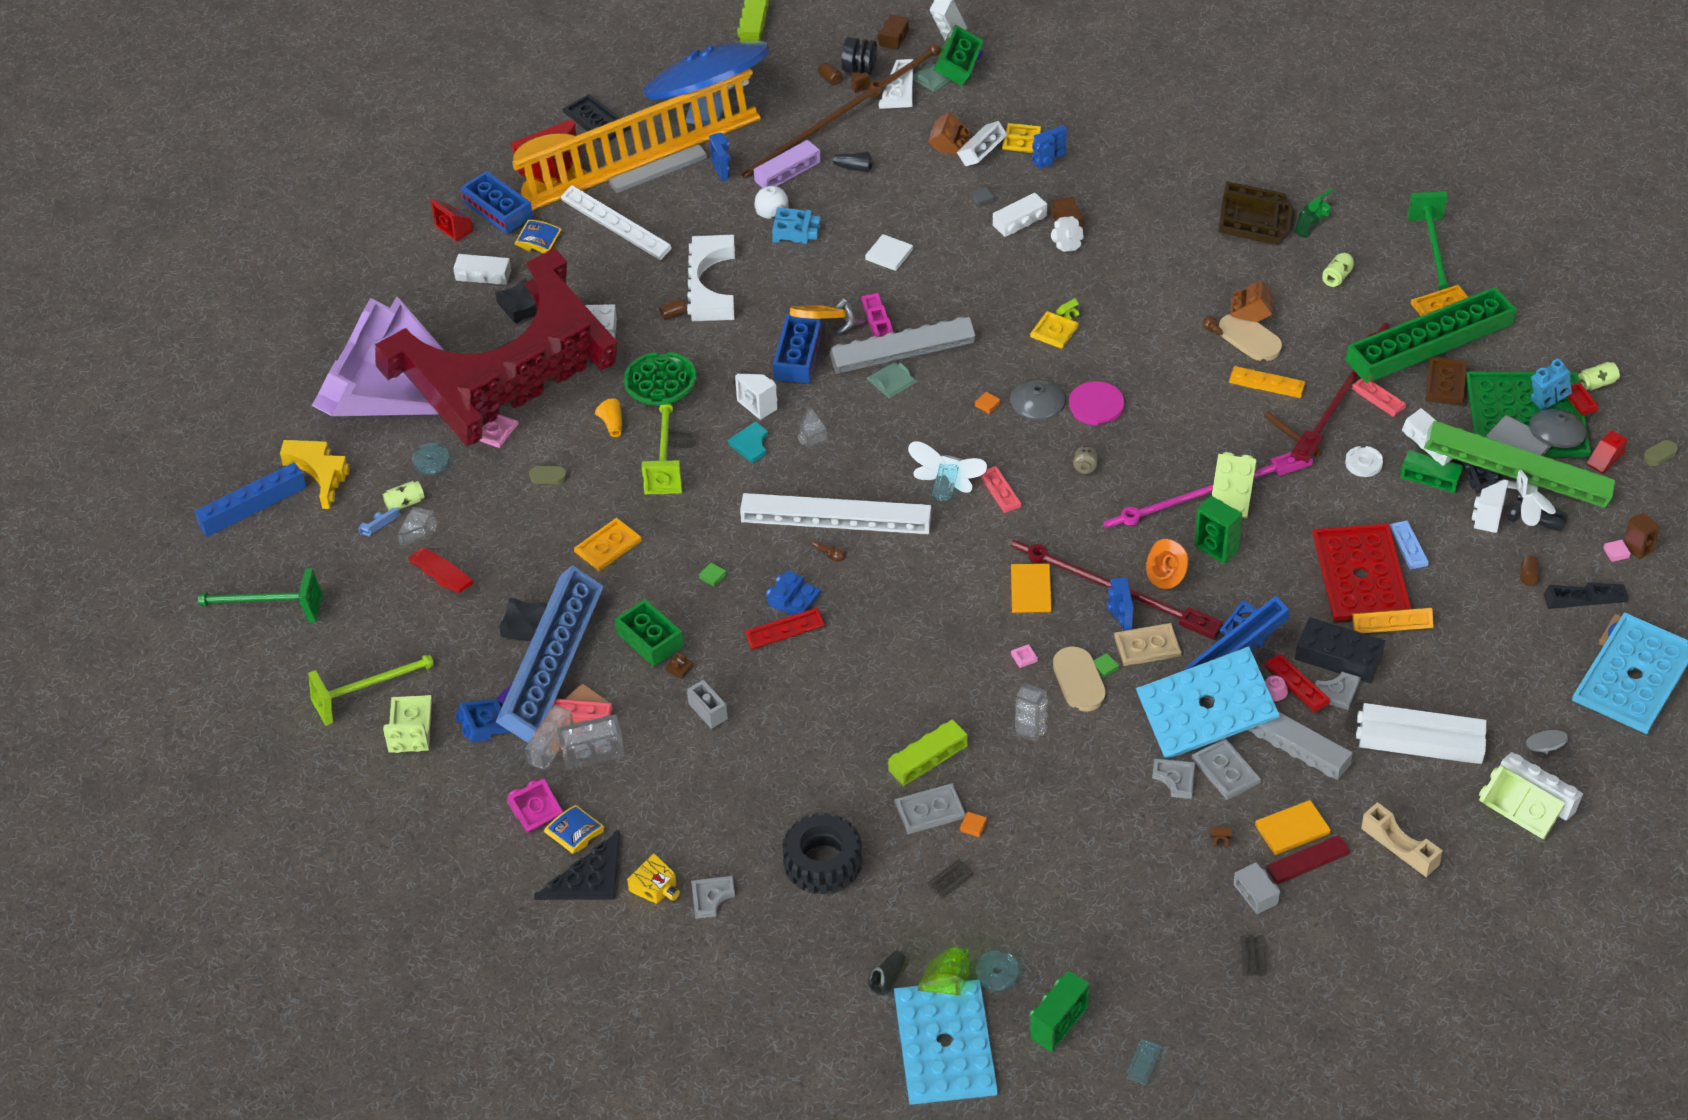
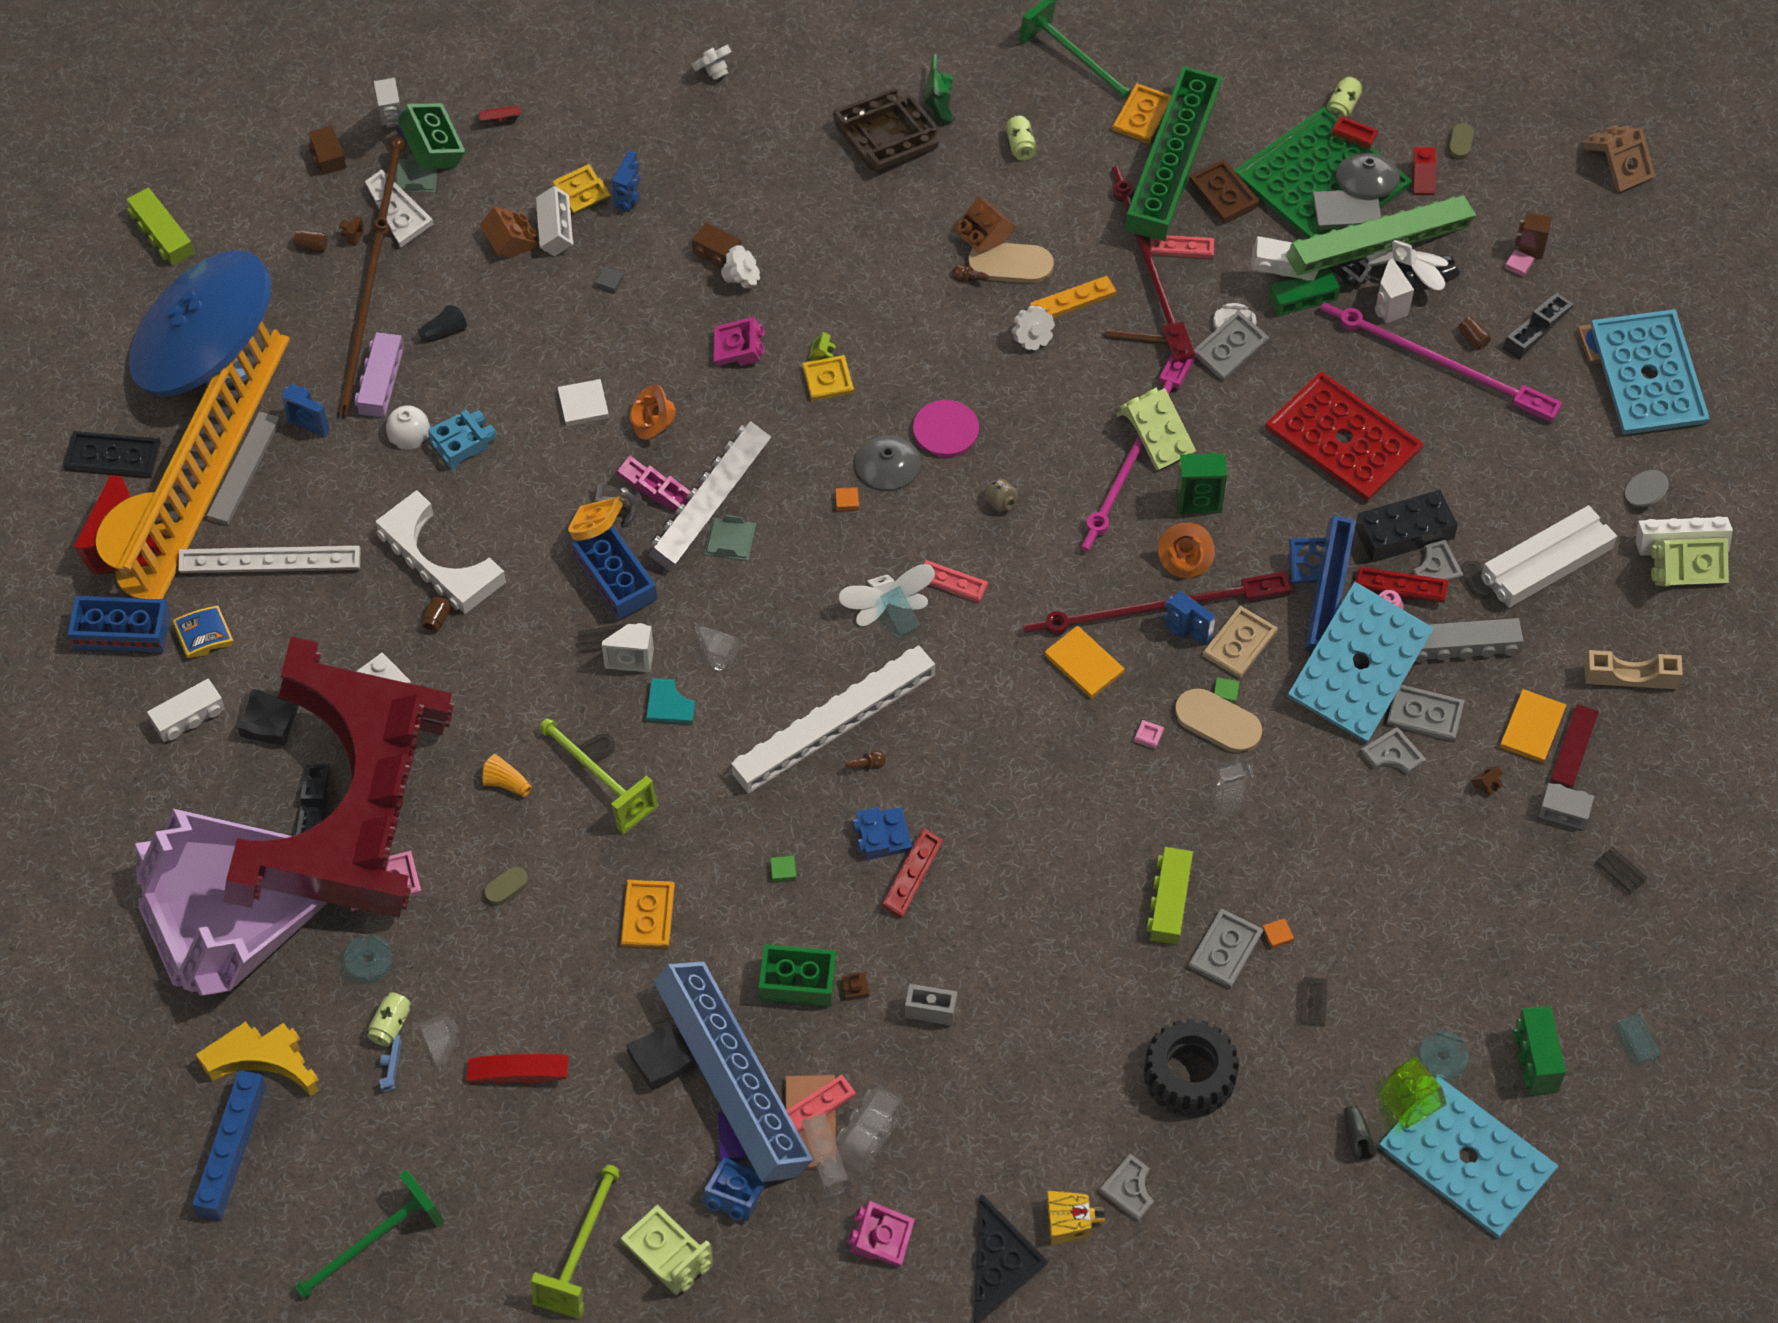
camera: 45 degrees left, 10 degrees up
(450, 220) = (91, 679): red slope -> none
(574, 829) = (940, 1226): slope -> none
(659, 378) = (511, 682): green brick -> none
(861, 56) = (331, 199): black wheel -> none
(918, 279) = (651, 412): none -> orange hat
(1018, 70) = (499, 114): none -> red plate
(1019, 214) = (671, 275): white brick -> none
(1019, 275) = (738, 342): none -> dark pink plate
(1182, 113) = (713, 62): none -> white plant
(1215, 378) = (1033, 327): none -> white plant
(1342, 471) = (1230, 345): none -> light grey tile
(1393, 620) = (1417, 464): light orange plate -> none
(1408, 545) = (1354, 379): light blue tile -> none
(1521, 632) = (1525, 398): none -> dark pink bar
(1549, 383) = (1331, 136): dark azure hips -> none

